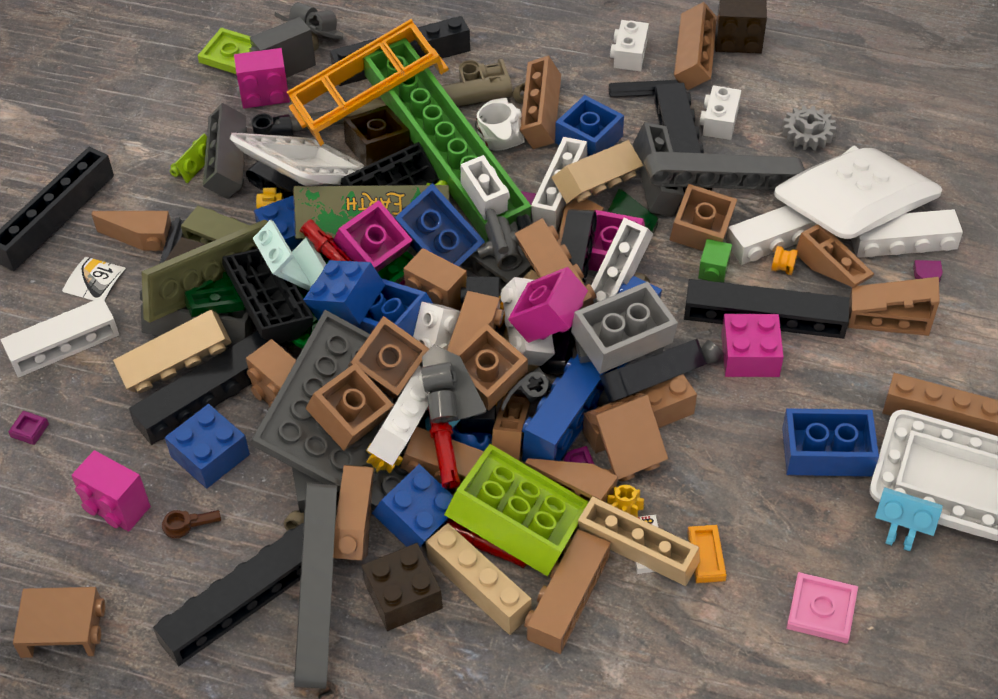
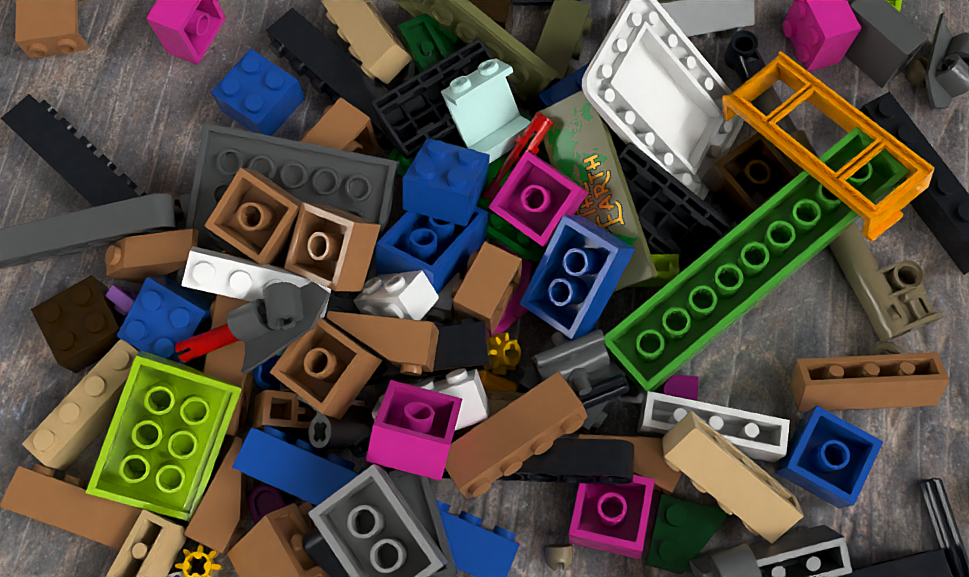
camera: 85 degrees right, 20 degrees up
(178, 523) = (168, 93): reddish brown plate -> none
(389, 546) = (122, 297): none -> medium lavender plate
(484, 186) = (645, 321): white brick -> none
(499, 124) = (805, 333): white piece -> none
(621, 259) = (539, 523): white brick -> none

